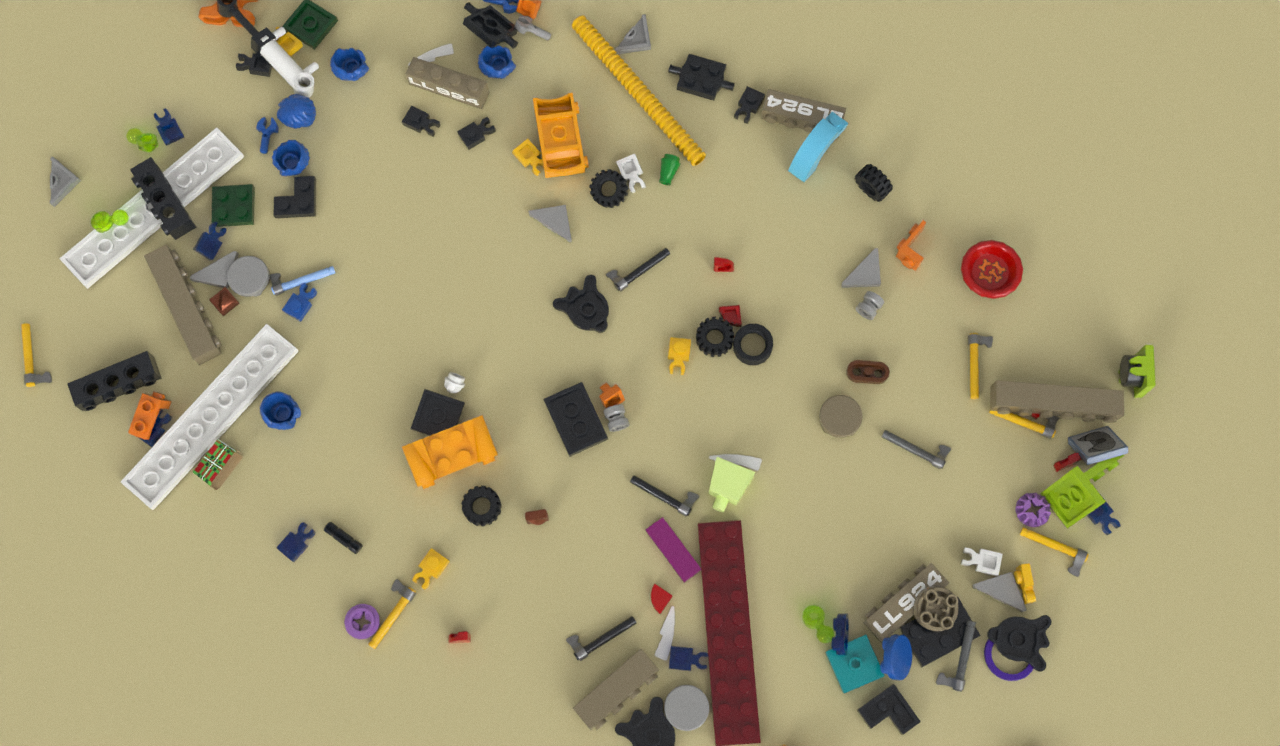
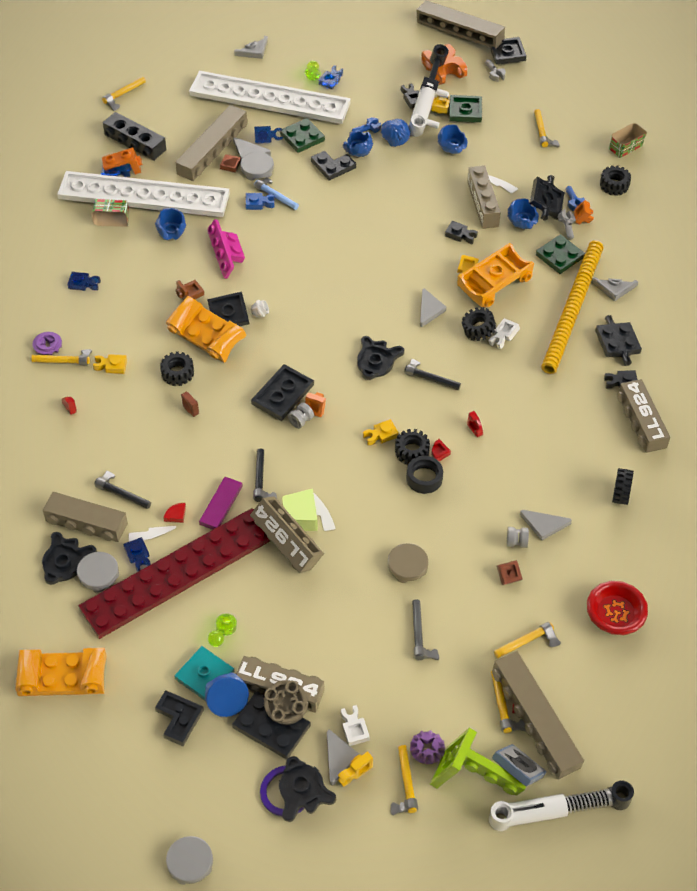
camera: 55 degrees right, 20 degrees down
(103, 221) = (240, 75): clear neon green plate -> none
(149, 172) = (276, 94): black brick -> none
(343, 538) = (102, 304): black axle -> none
(347, 371) = (226, 248): none -> dark pink bracket
(385, 440) = (189, 289): none -> dark orange bracket
(418, 120) = (443, 198): black plate -> none
(564, 59) = (560, 254): none -> plate
(669, 167) = (526, 353): green cone -> none
(755, 509) = (286, 534): none -> dark tan brick
(815, 146) = (620, 426): medium azure arch -> none
(841, 626) = (222, 646): clear blue plate -> none
(867, 371) = (459, 565): reddish brown plate -> none
(901, 335) = (509, 572): none -> copper tile
(908, 256) = (593, 538): orange bracket -> none
(958, 681) = (236, 758): dark grey piece -> none
(1065, 463) = (487, 752): red tile -> none
(1102, 515) = (460, 800): clear blue plate -> none
(1138, 371) = (612, 764): lime piece -> none
(1146, 438) = (558, 806): none -> piece

